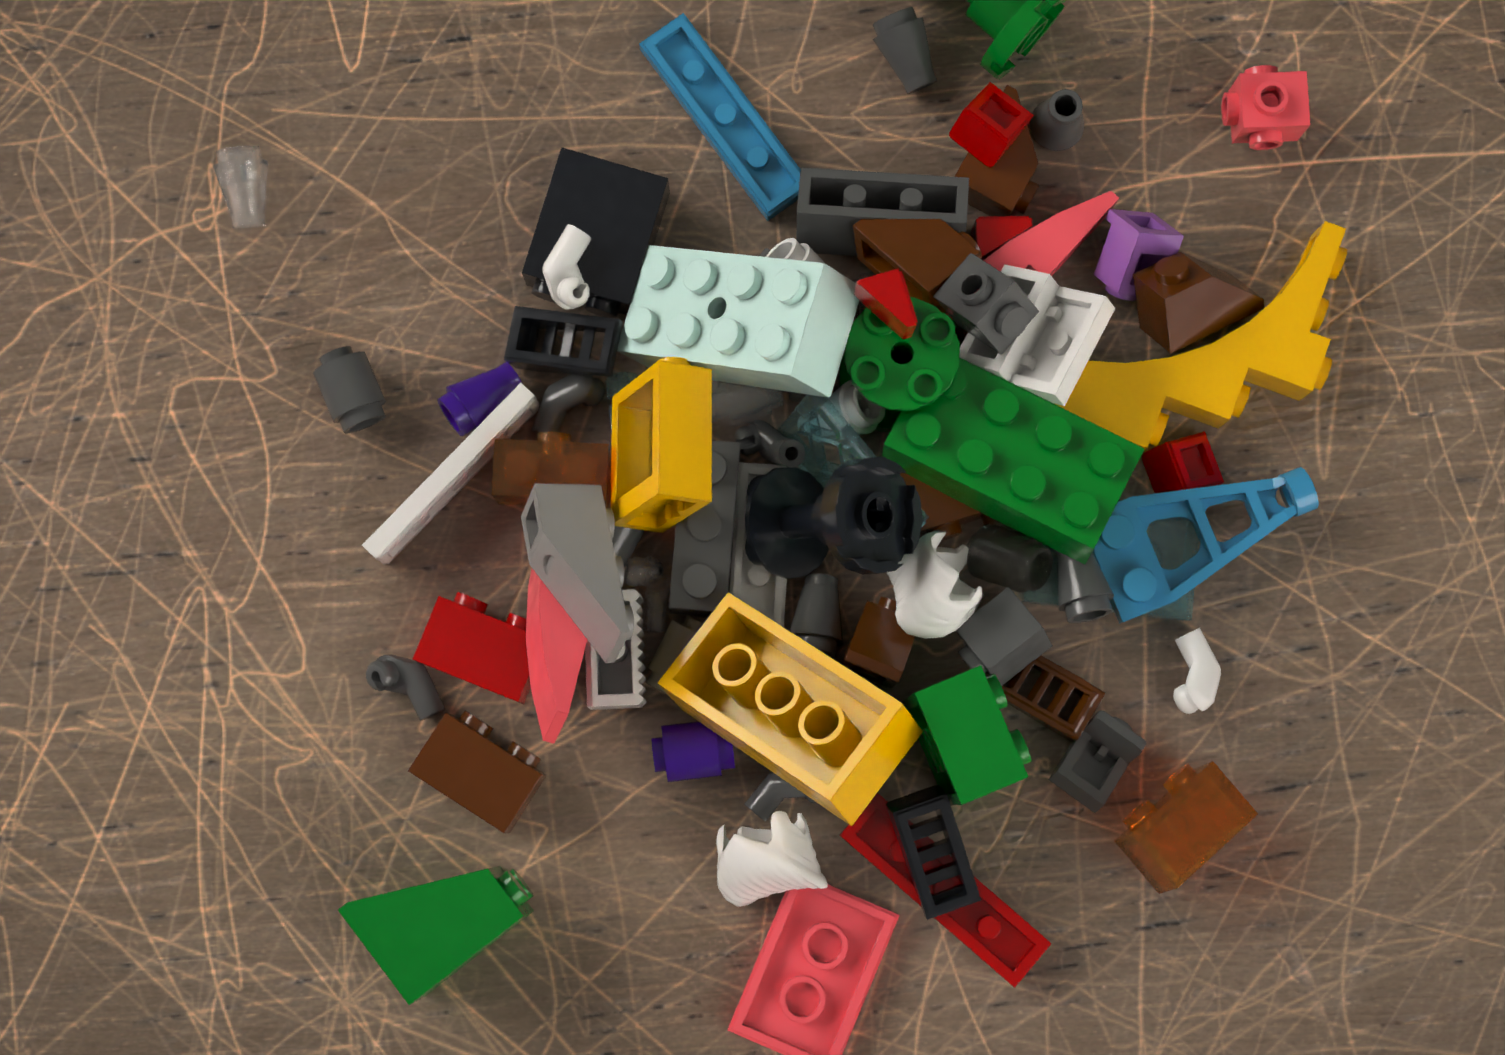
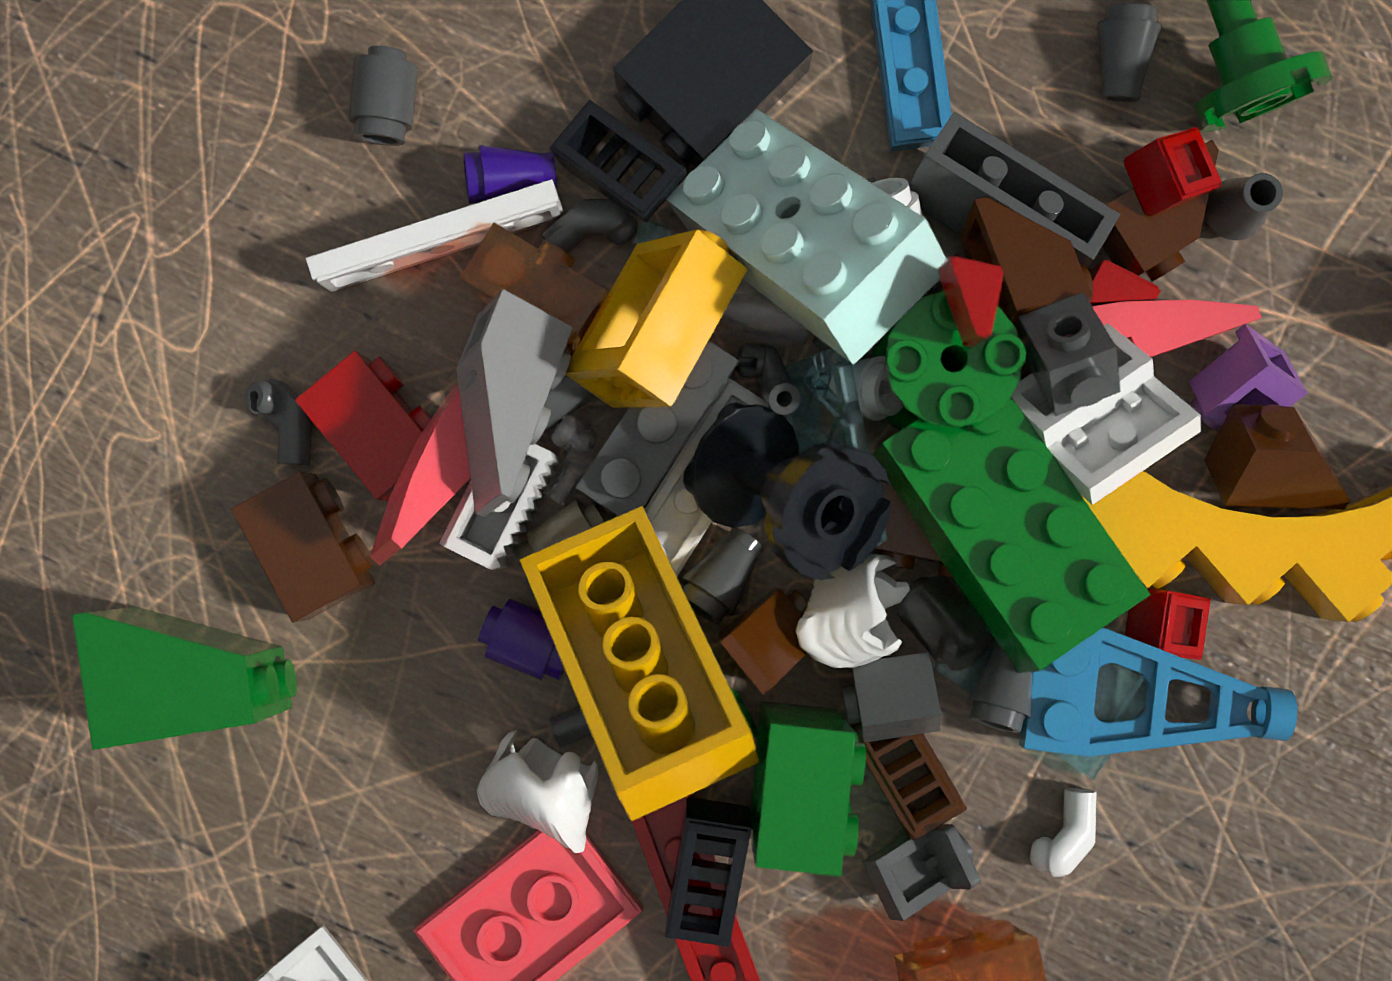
camera: 30 degrees right, 5 degrees up
(562, 271) = (654, 85): white arm -> none

